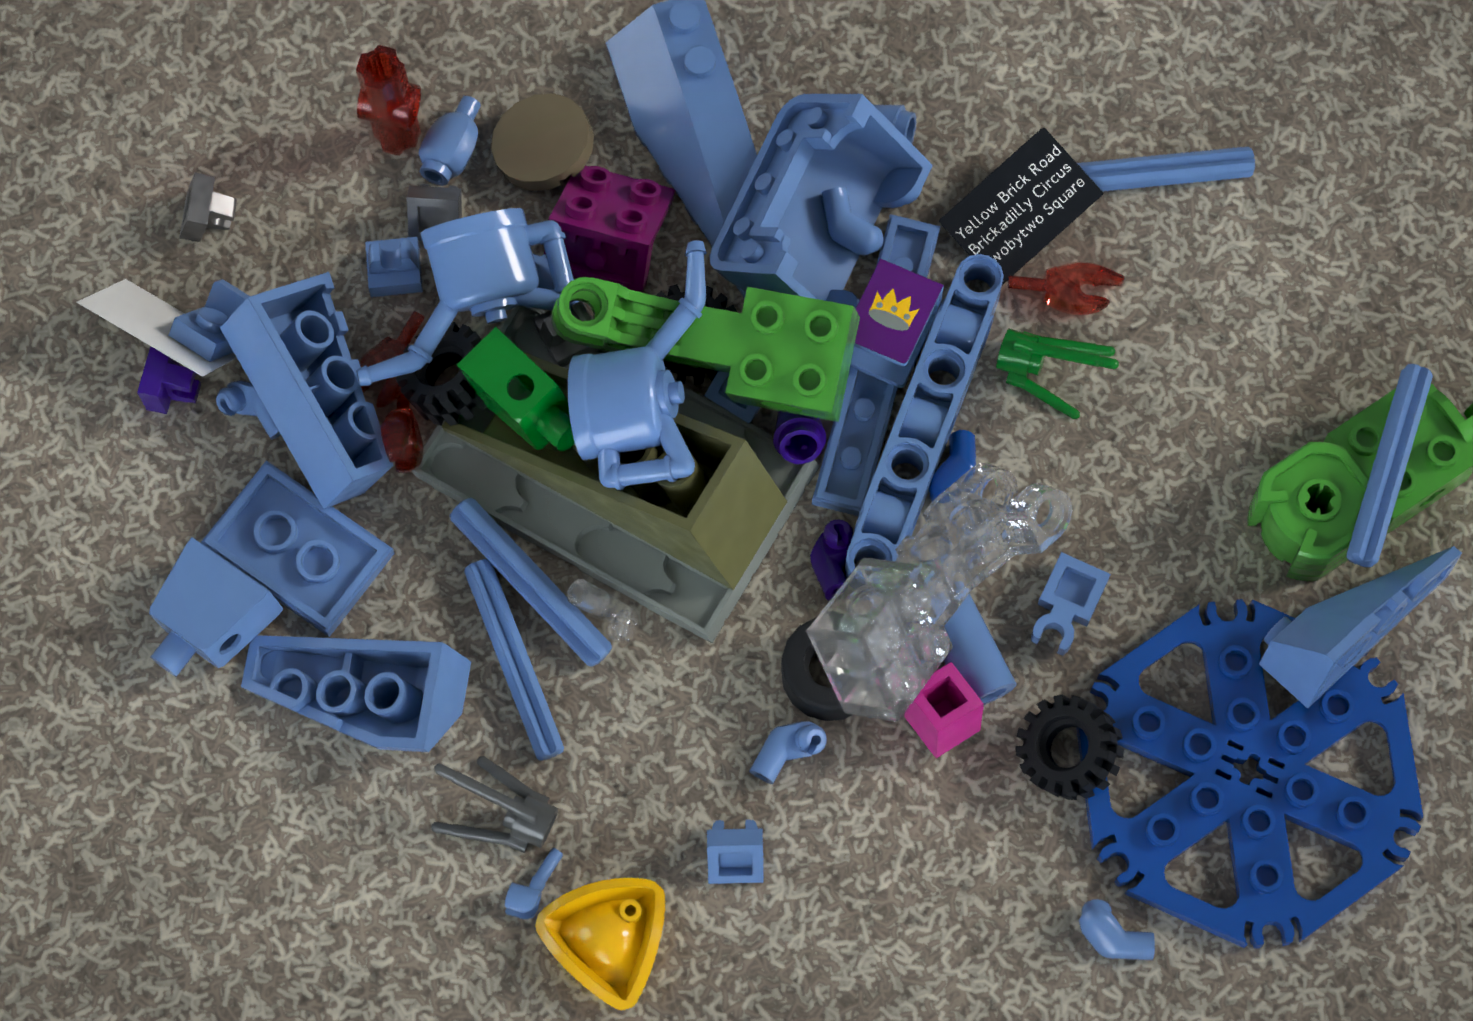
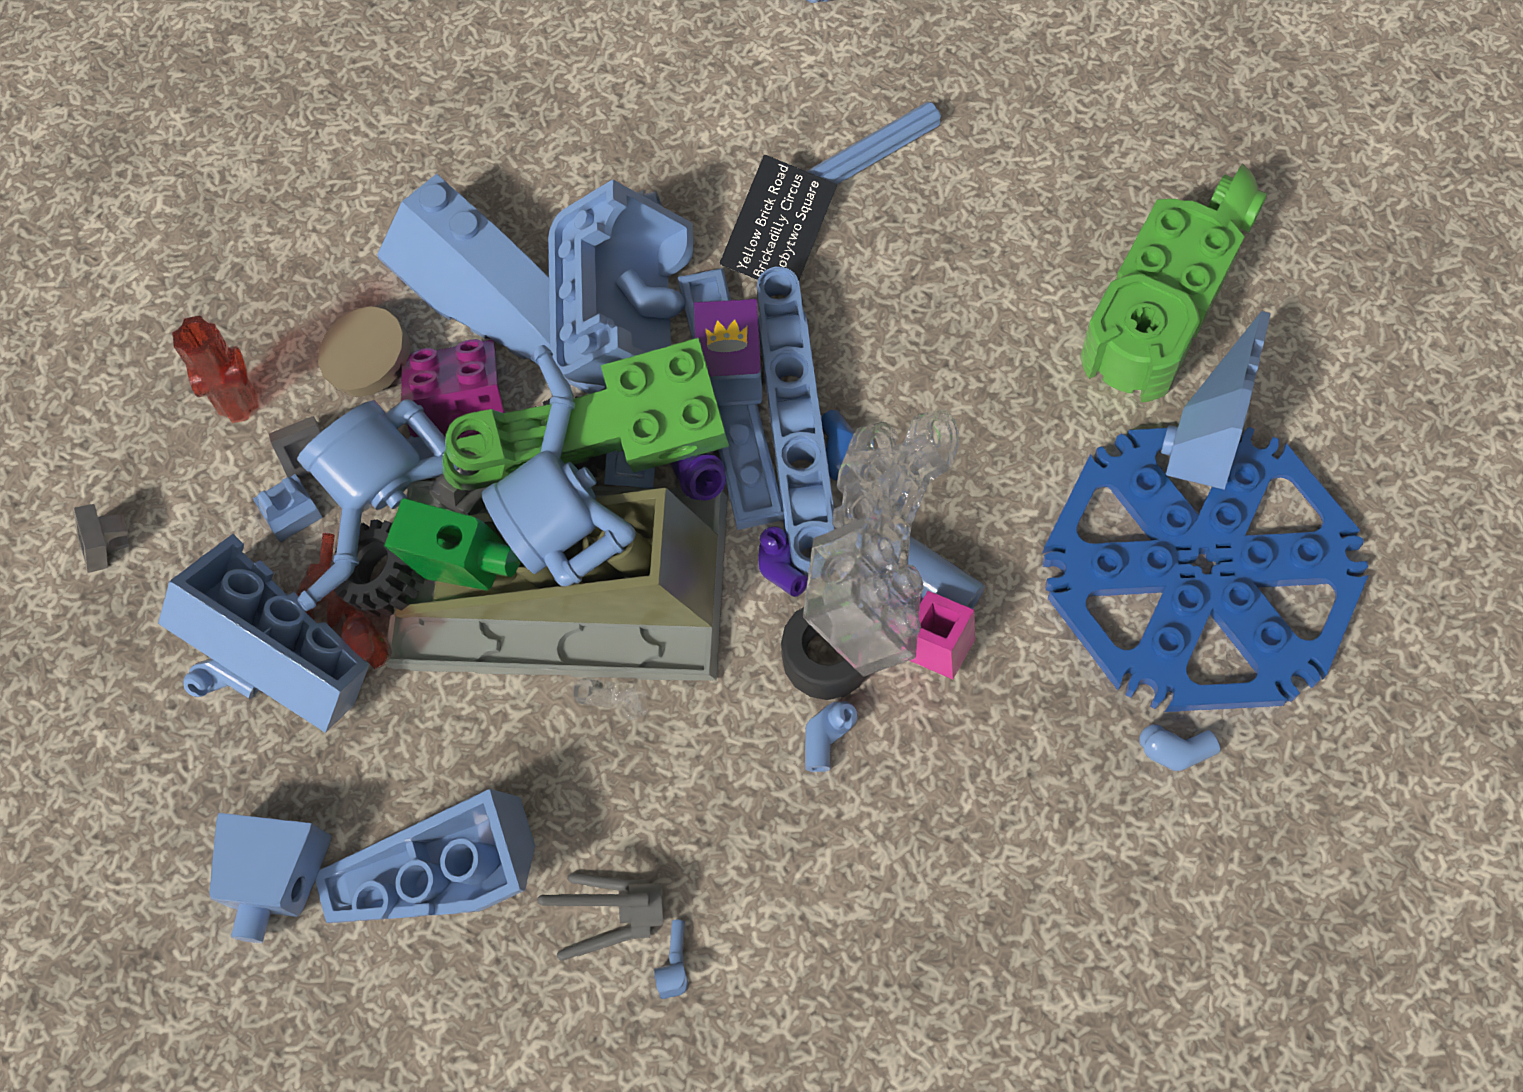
camera: 25 degrees left, 5 degrees down
(149, 321) = (105, 649): white sticker -> none
(166, 381) = (131, 693): dark purple tile -> none
(201, 328) = (143, 632): medium blue bracket -> none
(297, 550) = (327, 779): medium blue tile -> none
(450, 143) = (286, 388): medium blue plant -> none
(514, 660) = (556, 778): medium blue axle -> none
(530, 582) = (537, 705): medium blue axle -> none
(607, 936) = (761, 971): yellow hat -> none
(735, 854) = (833, 843): medium blue tile -> none
(1026, 352) = (845, 330): green plant -> none
(1039, 738) = (1027, 613): black tyre -> none
(1063, 283) = (844, 268): clear red hand -> none
(1070, 596) = (987, 496): medium blue plate -> none
(1389, 466) = (1185, 269): medium blue axle -> none

